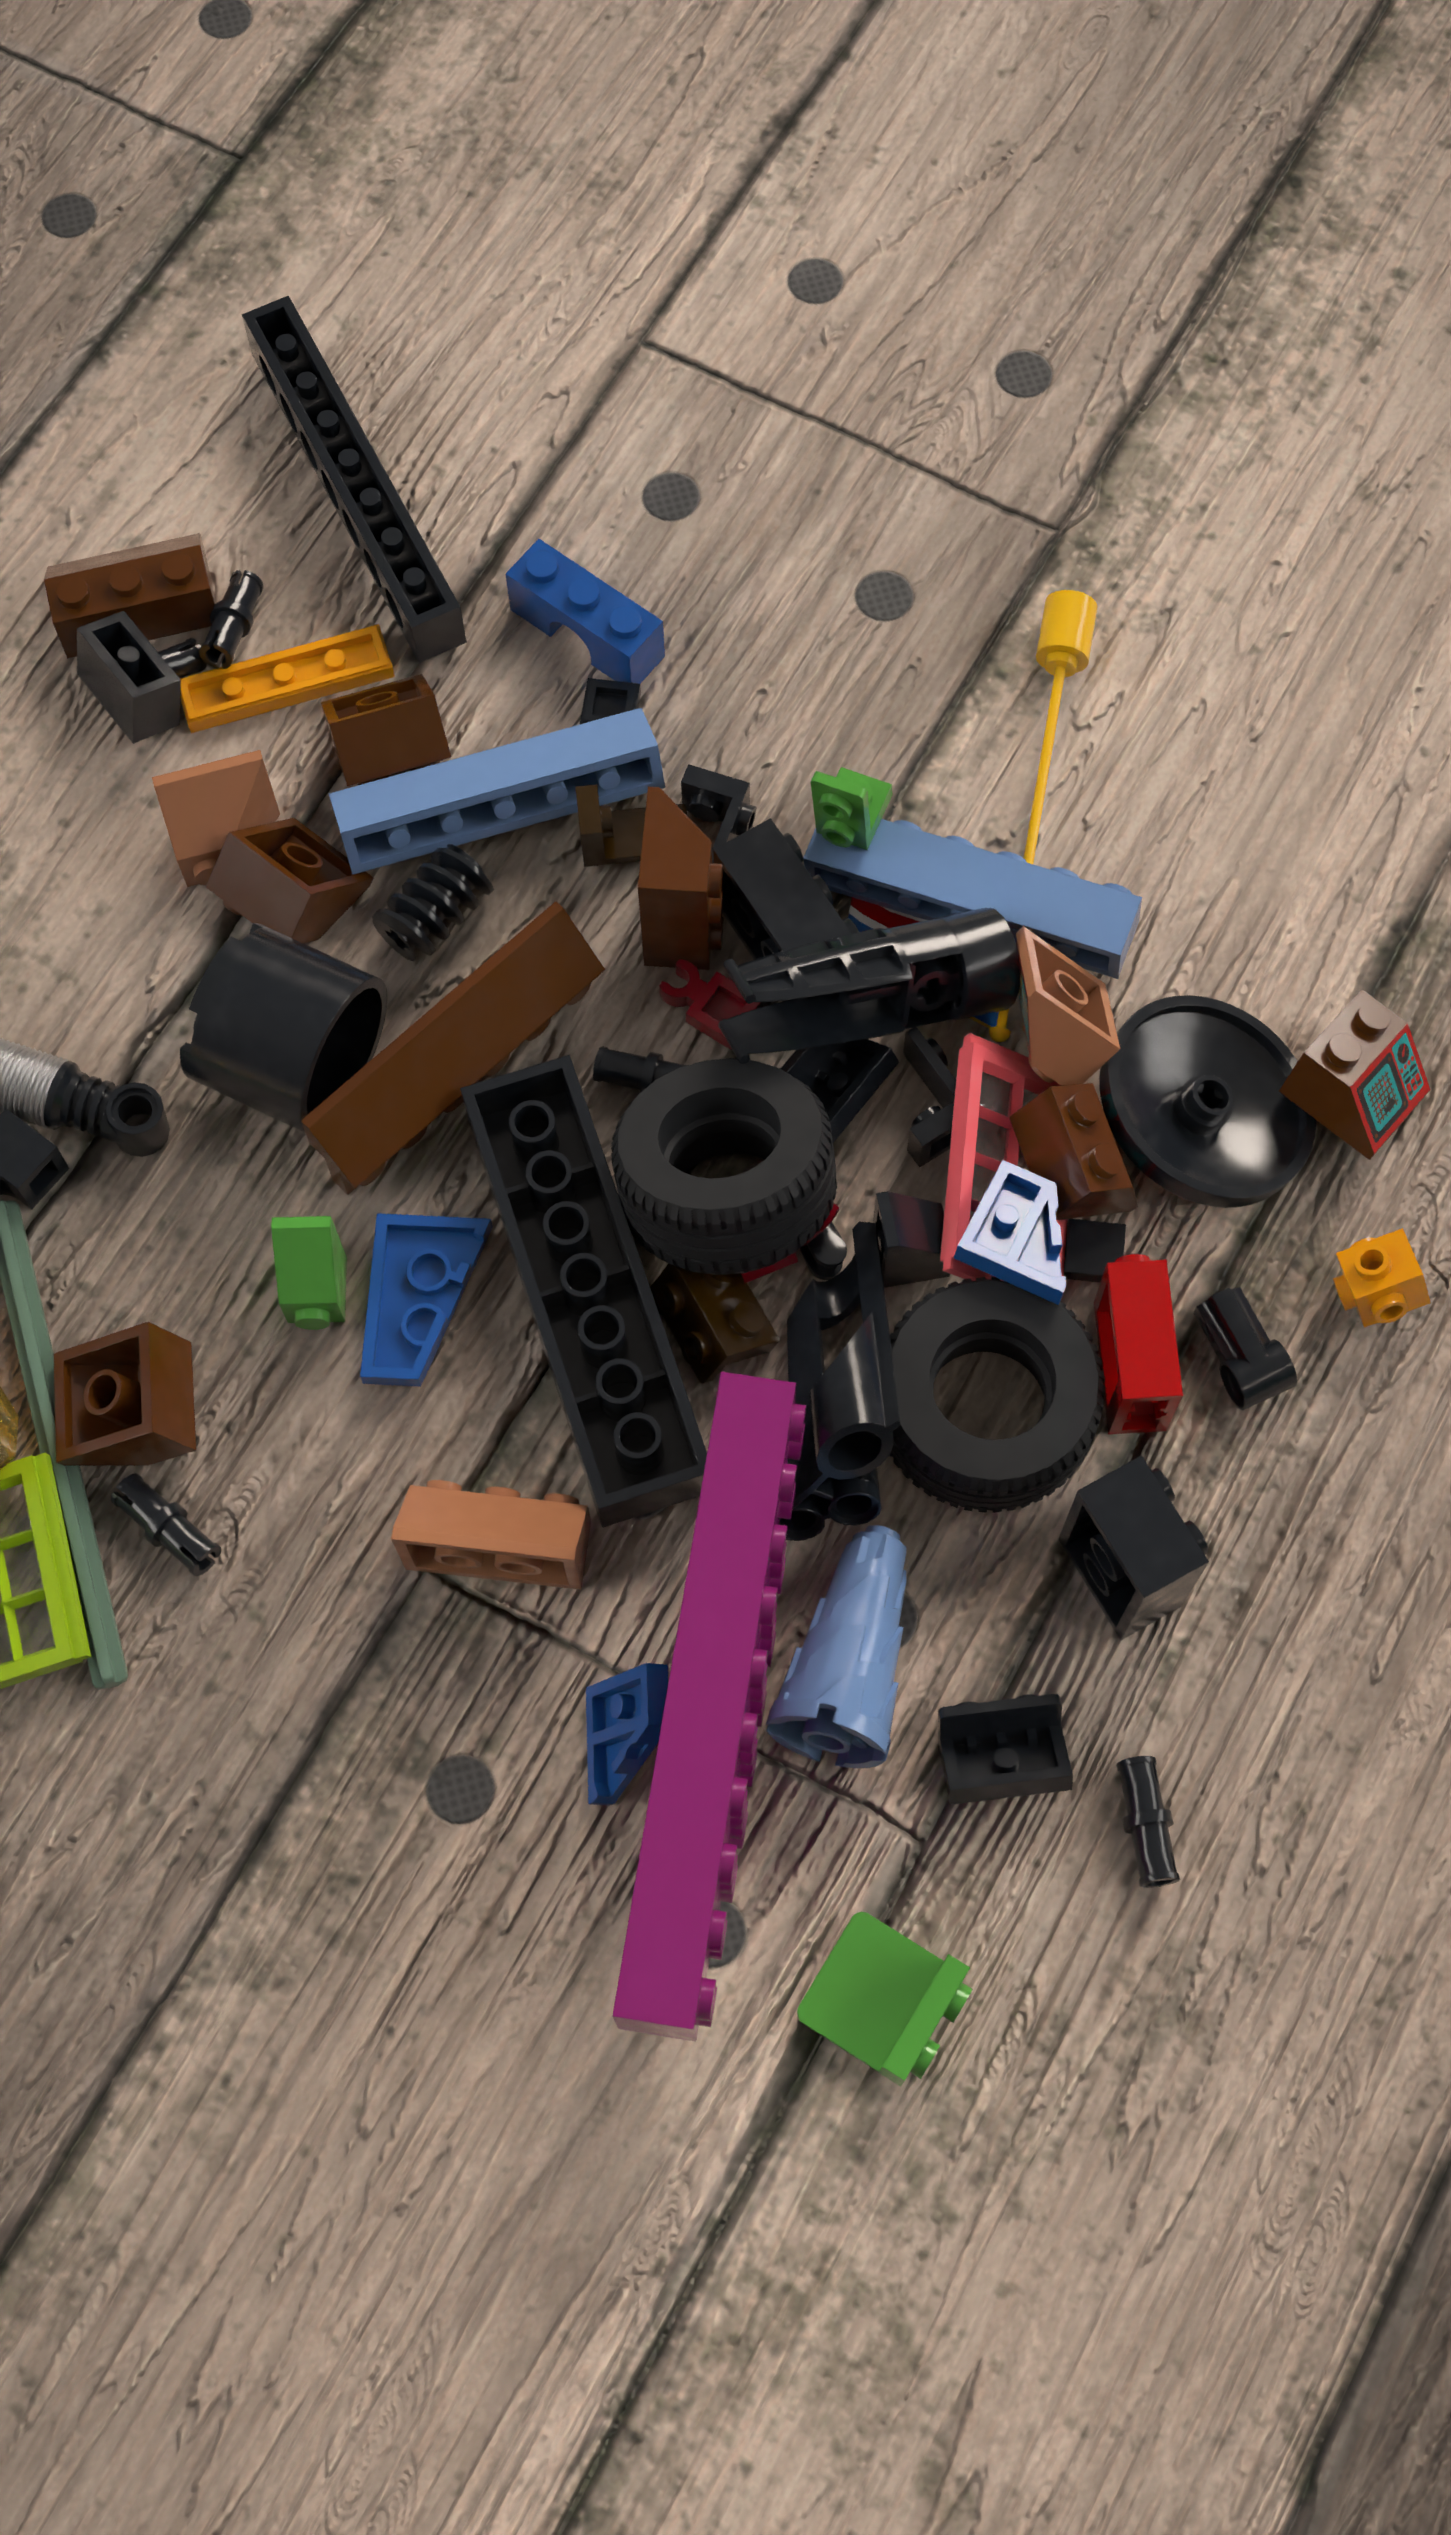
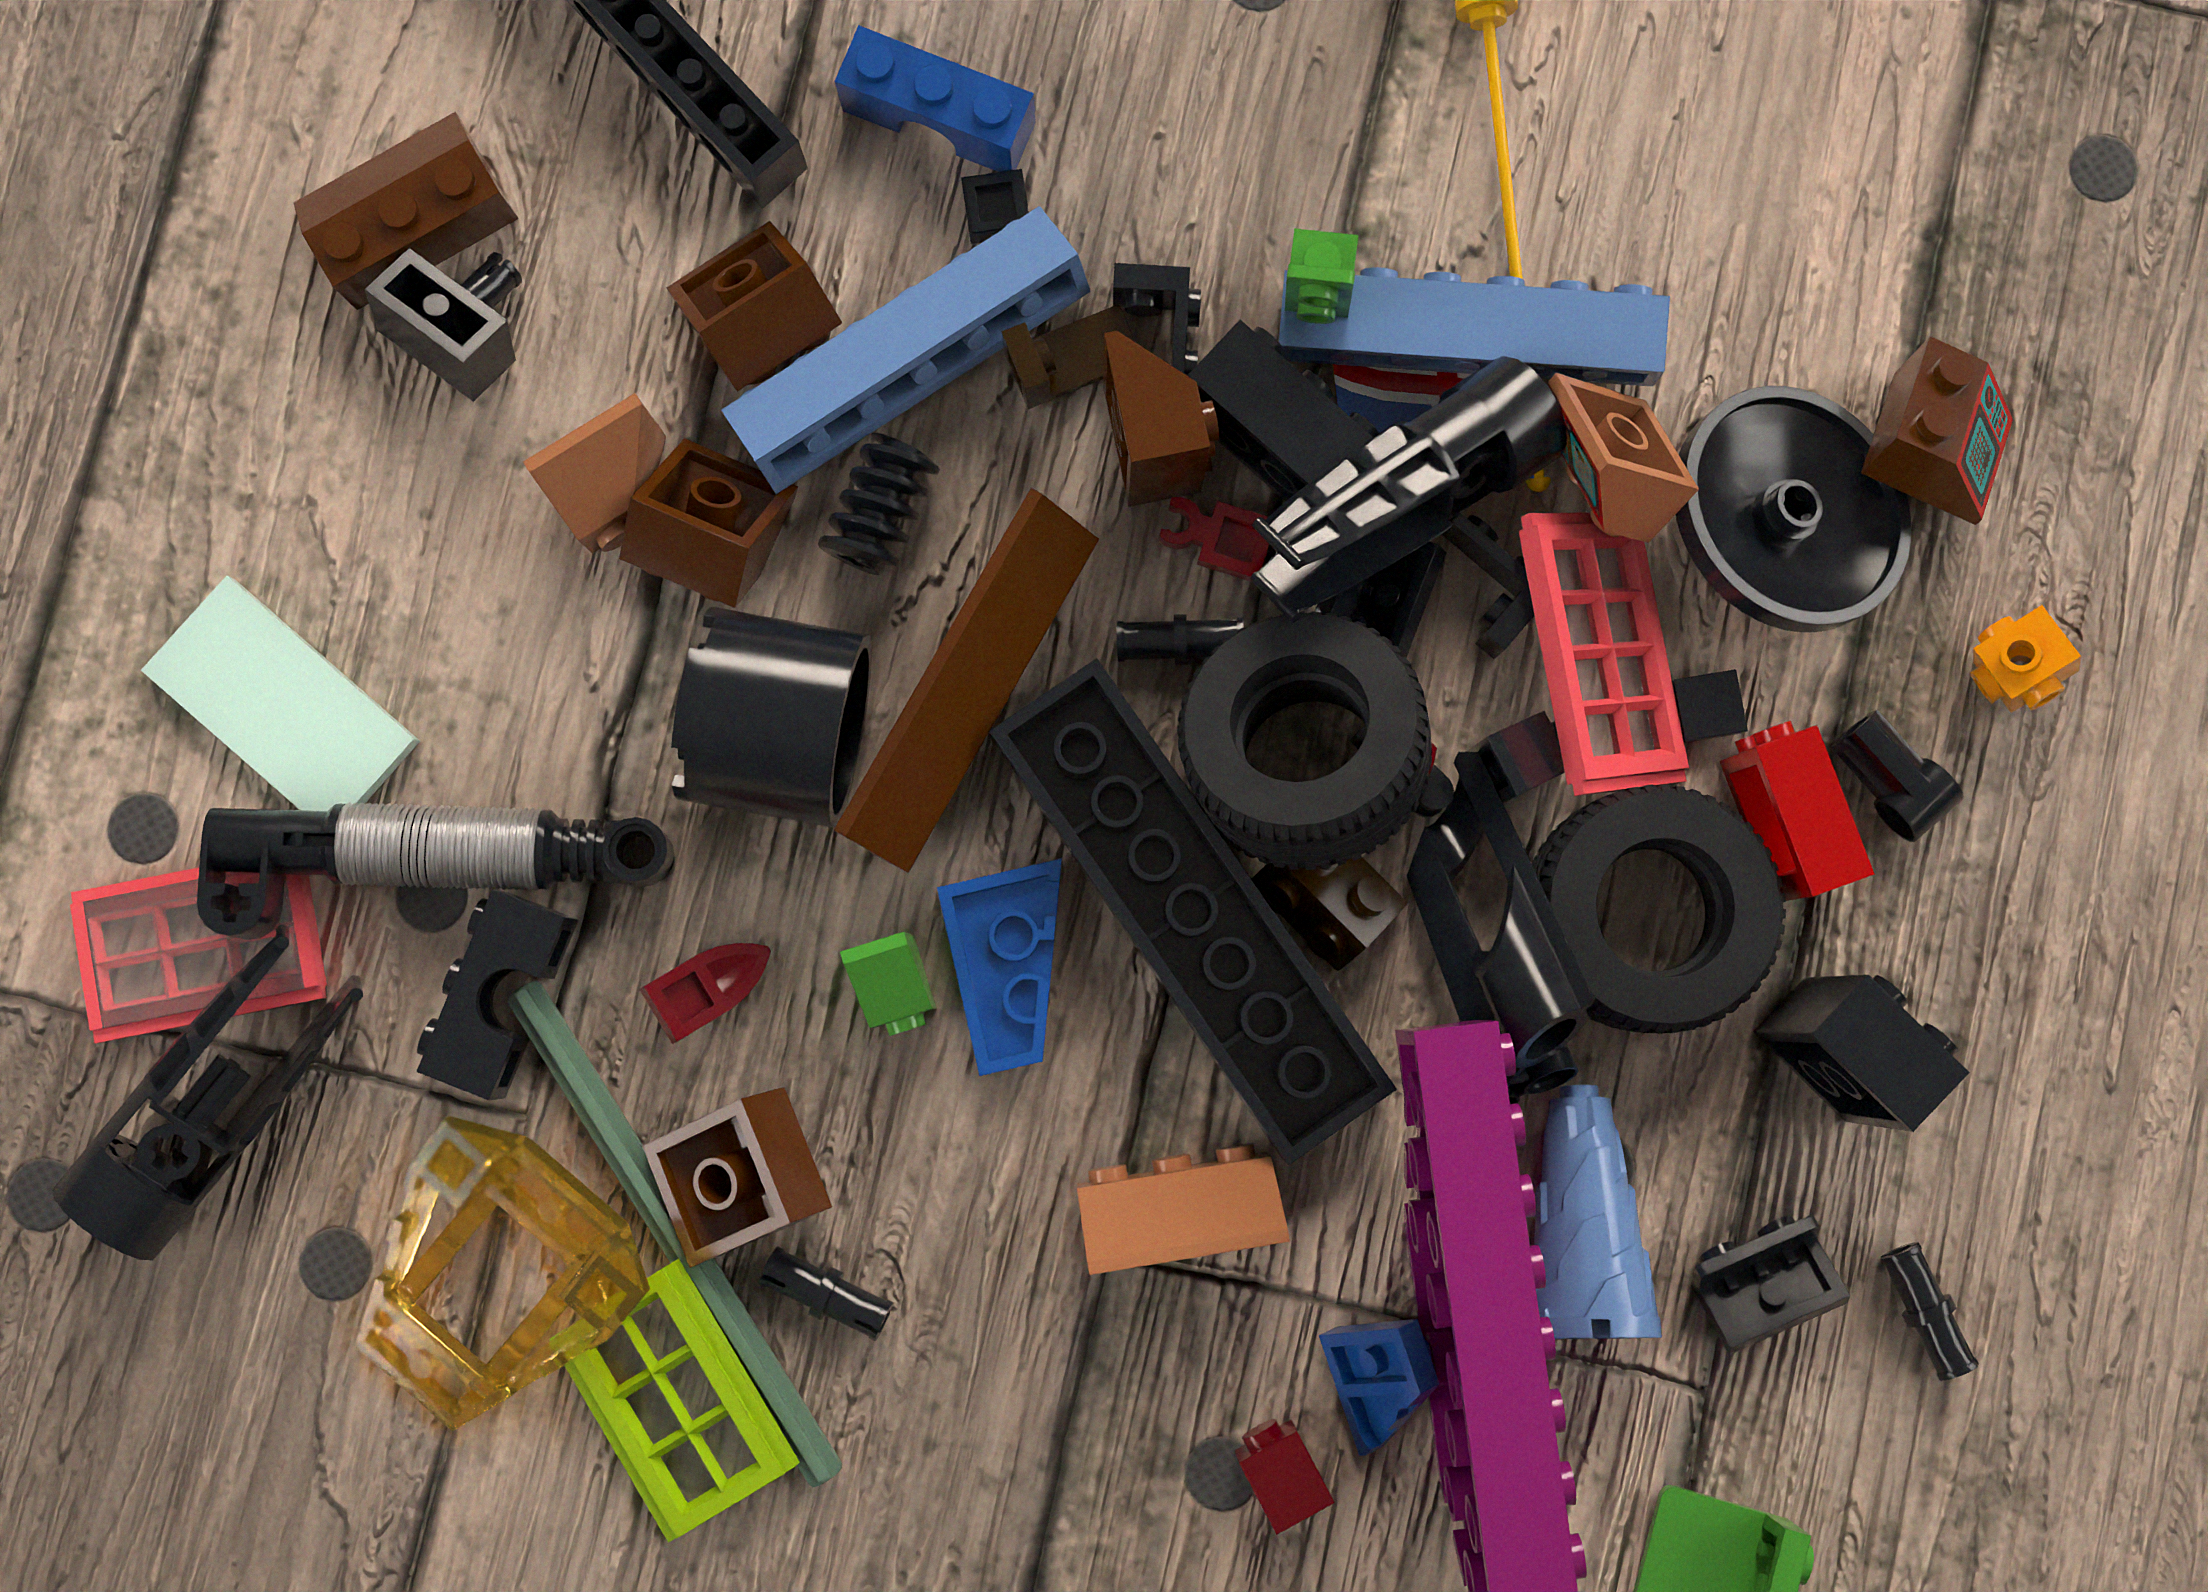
camera: 20 degrees left, 15 degrees up
(153, 1243) = (705, 987): none -> dark red plate
(231, 619) = (532, 215): black pin -> none
(285, 678) = (616, 269): light orange tile -> none
(512, 1792) = (1282, 1474): none -> dark red brick
(1017, 1233) = (1646, 736): wing -> none
(1072, 1145) = (1671, 618): reddish brown slope -> none

